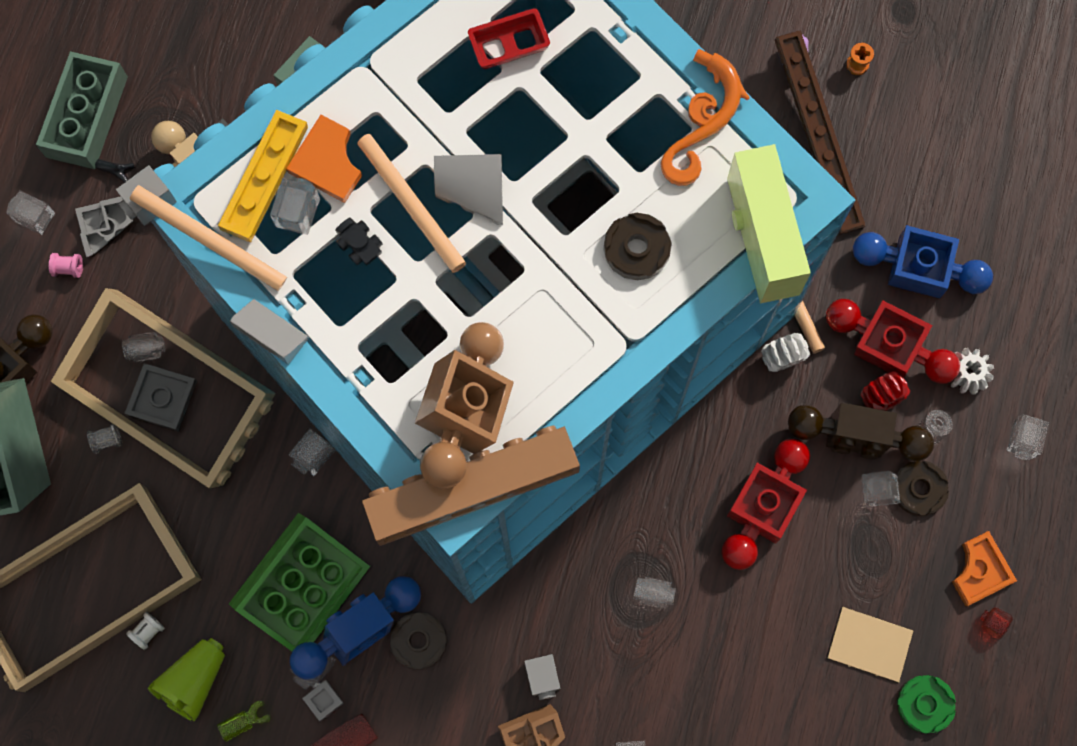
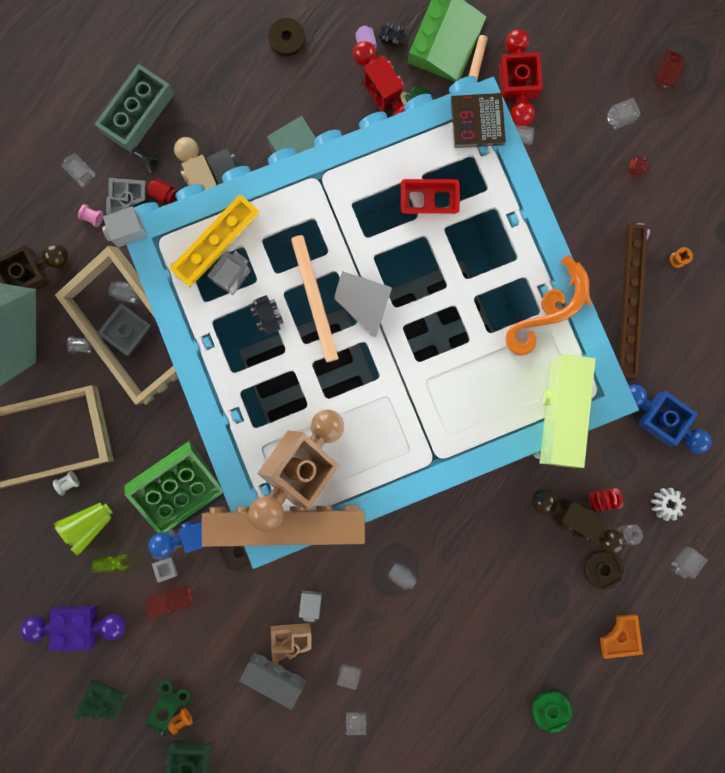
camera: 15 degrees right, 10 degrees up
(208, 237) = (157, 276): light nougat piece -> none
(269, 331) = (180, 360): light grey slope -> none
(325, 161) = (263, 243): orange tile -> none
(637, 265) = (451, 389): dark brown tile -> none
(766, 504) = (497, 545): red brick -> none
(870, 644) = (530, 659): tan window -> none
(880, 488) = (577, 563): clear brick -> none
(893, 340) = (626, 467): red brick -> none
(996, 622) = (618, 676): clear red piece -> none

